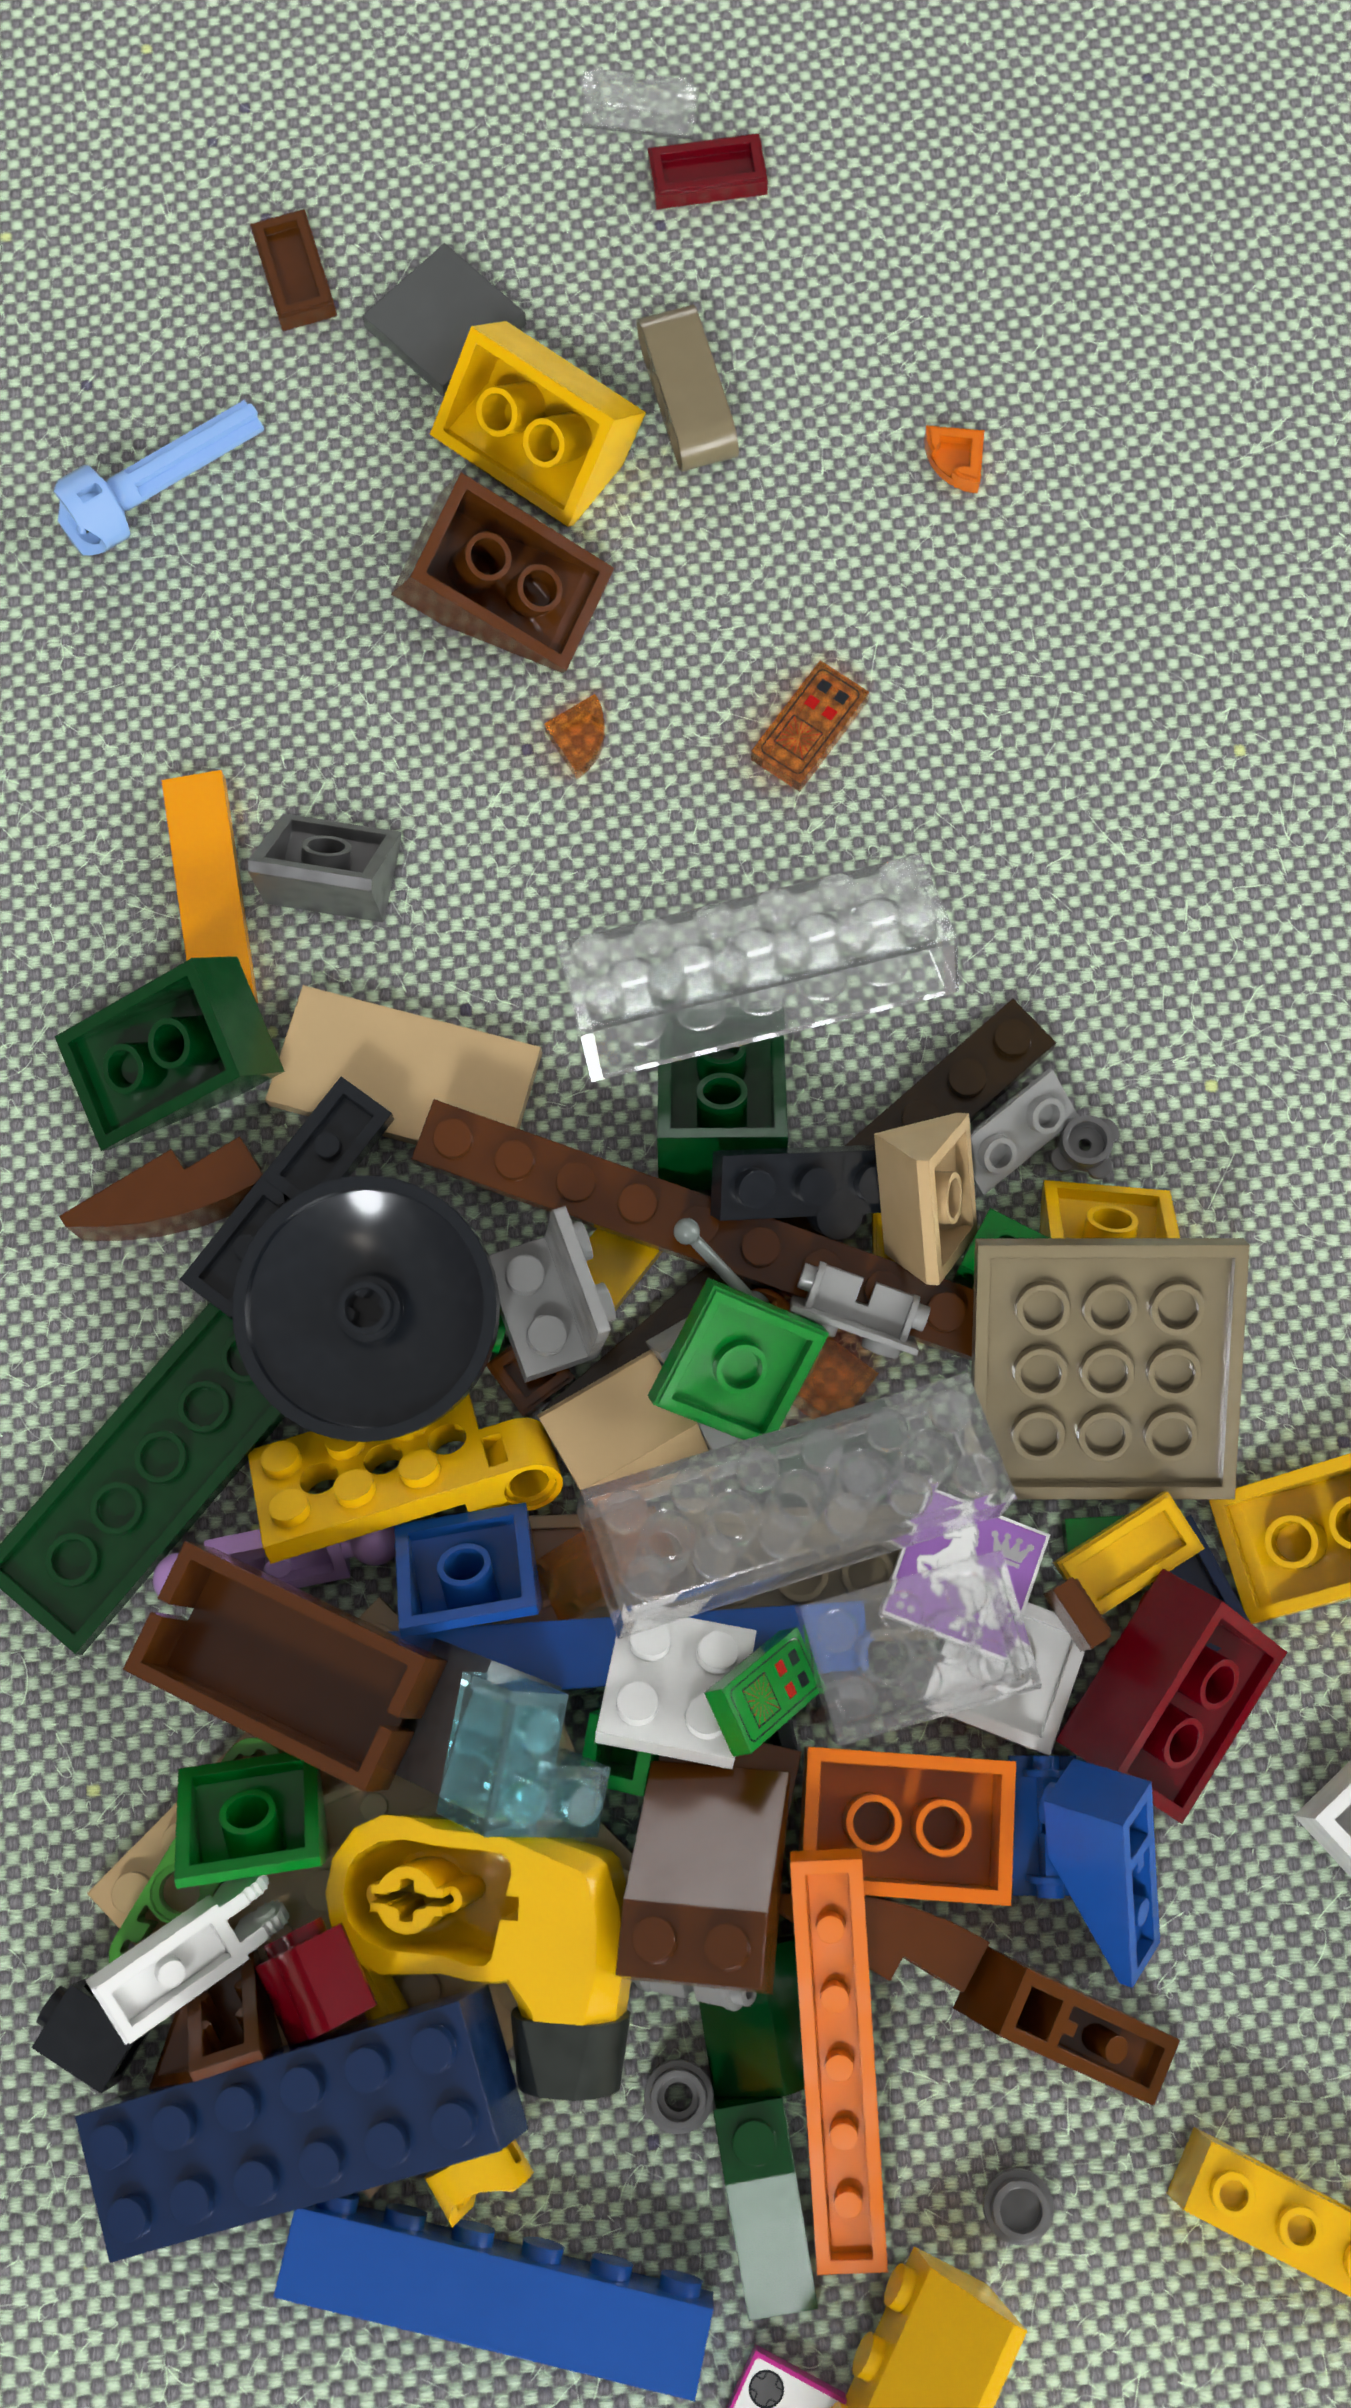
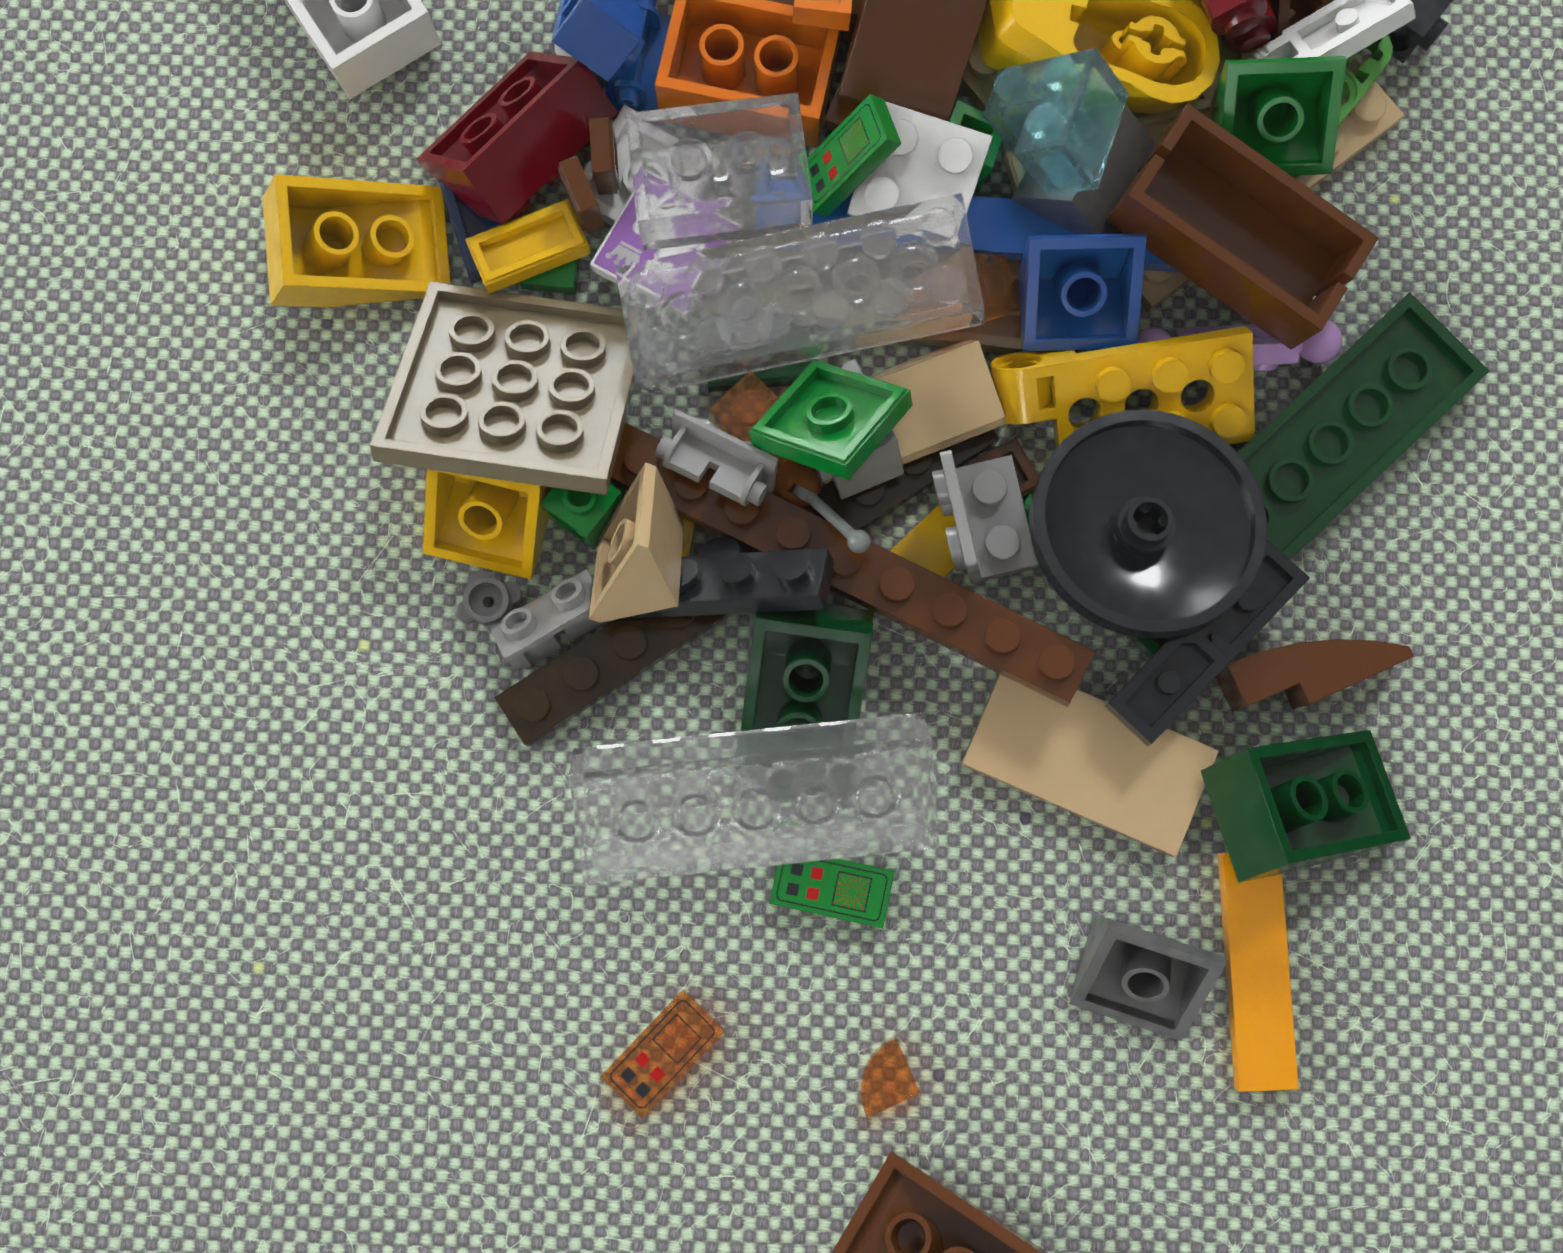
camera: 175 degrees left, 5 degrees up
(645, 896) = (834, 890): none -> green tile
(1059, 1668) = (604, 156): none -> reddish brown tile

